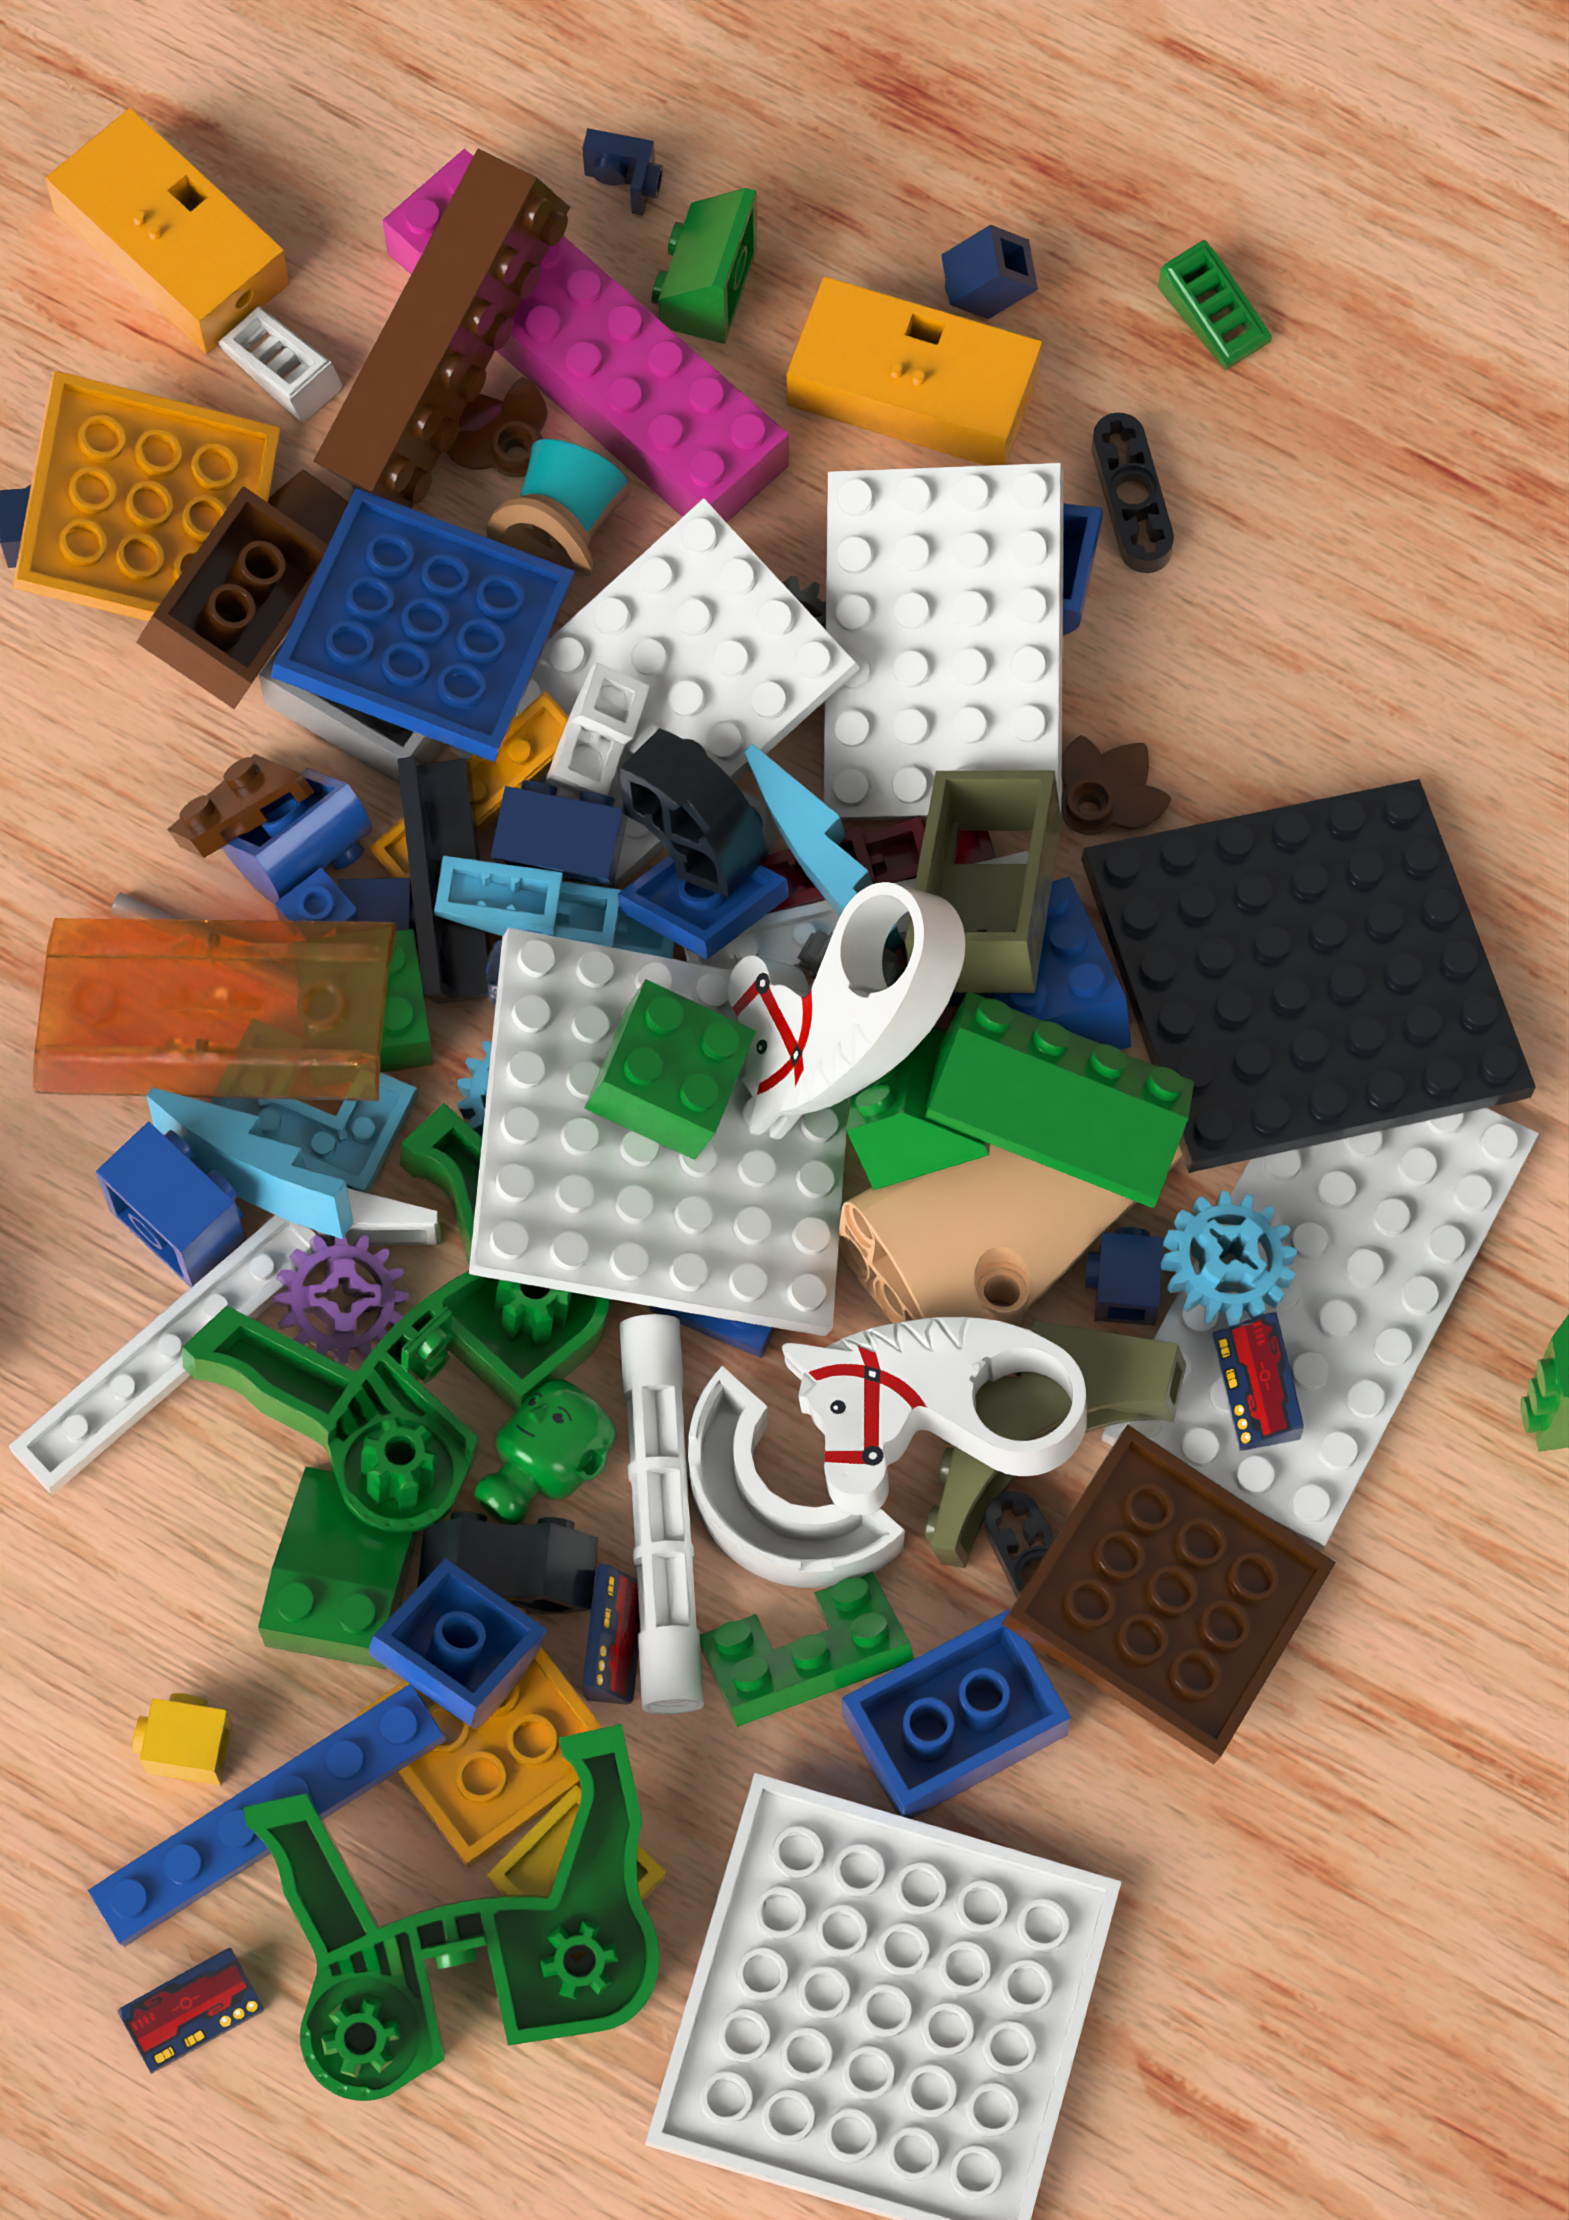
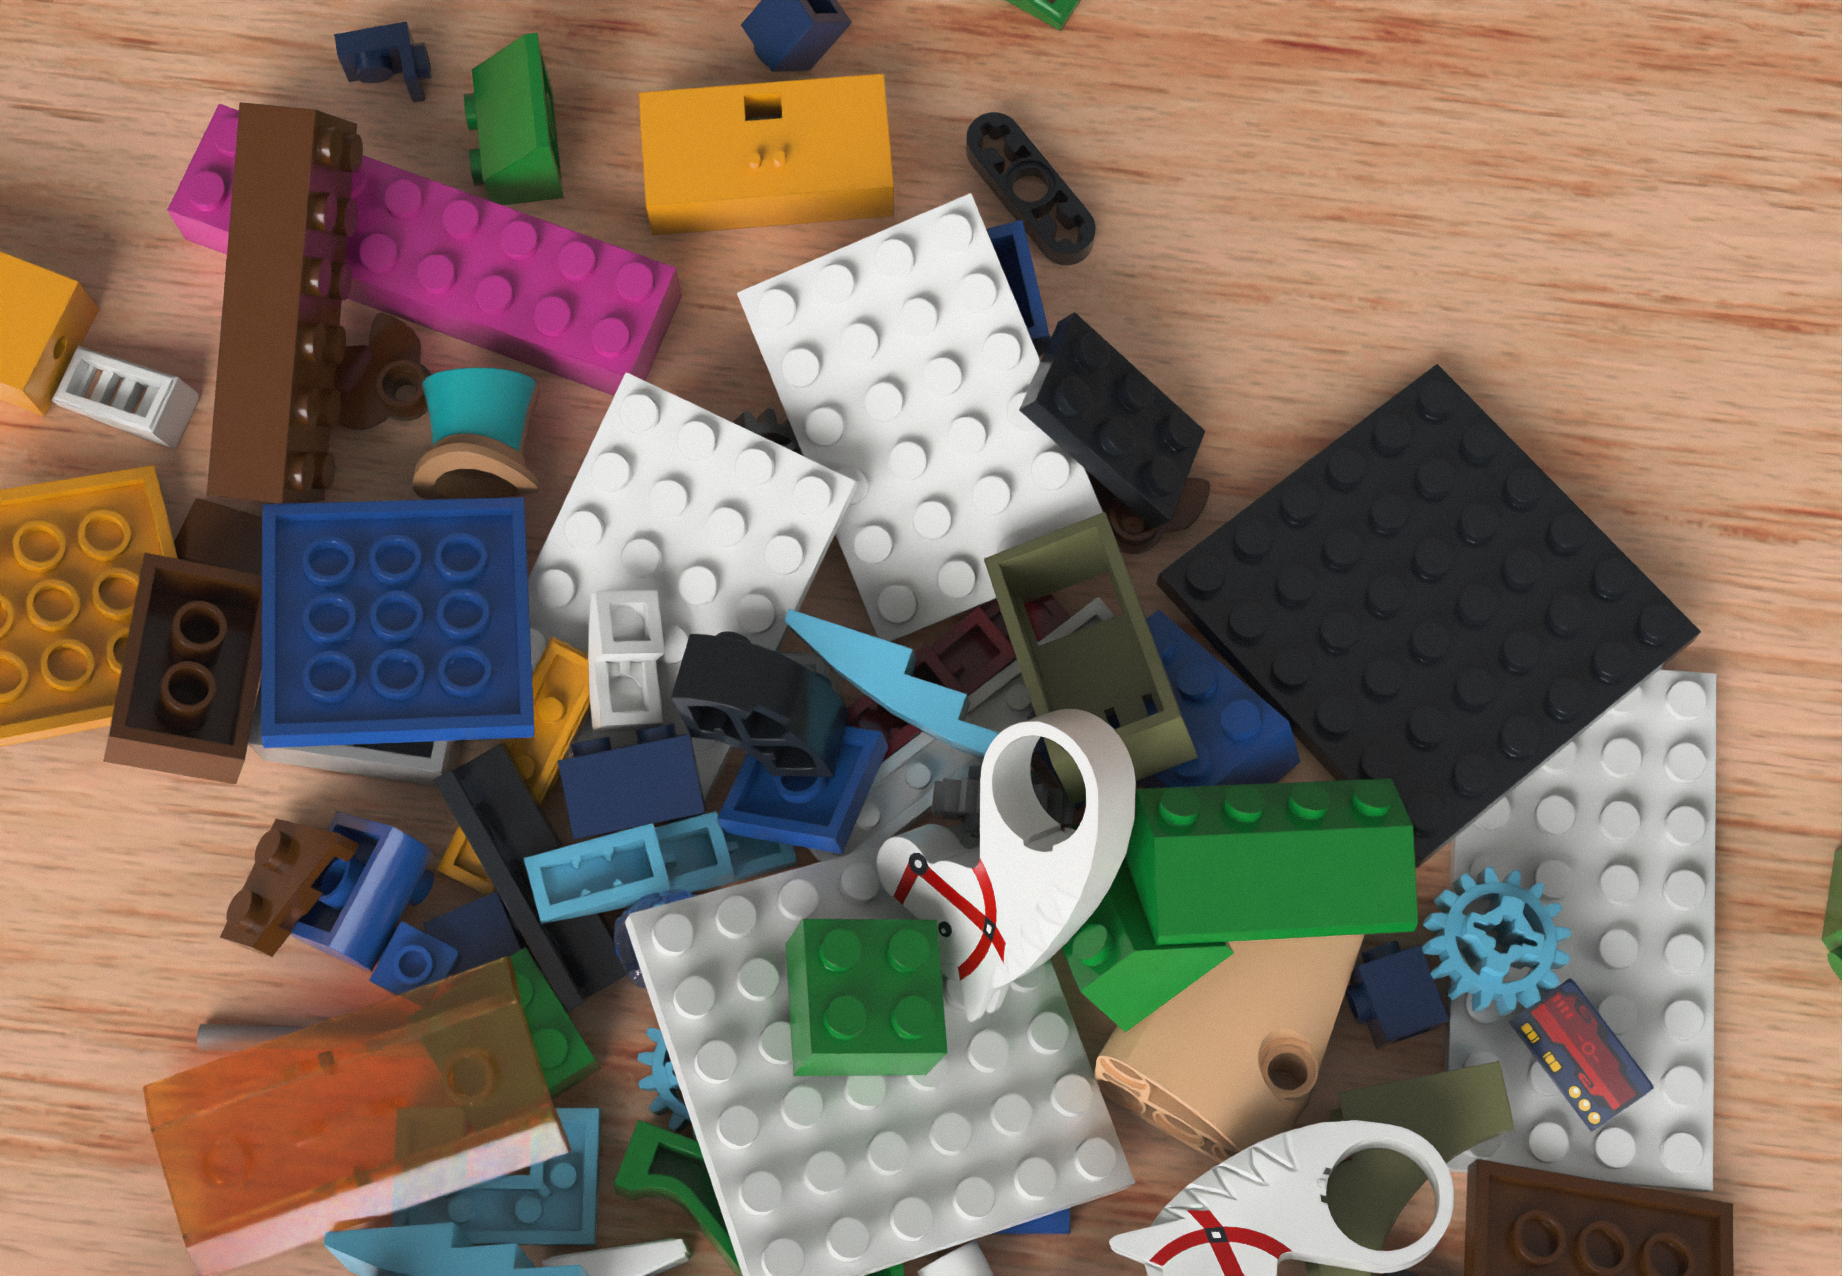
camera: 25 degrees left, 5 degrees up
(1103, 706) = (1113, 420): none -> black plate

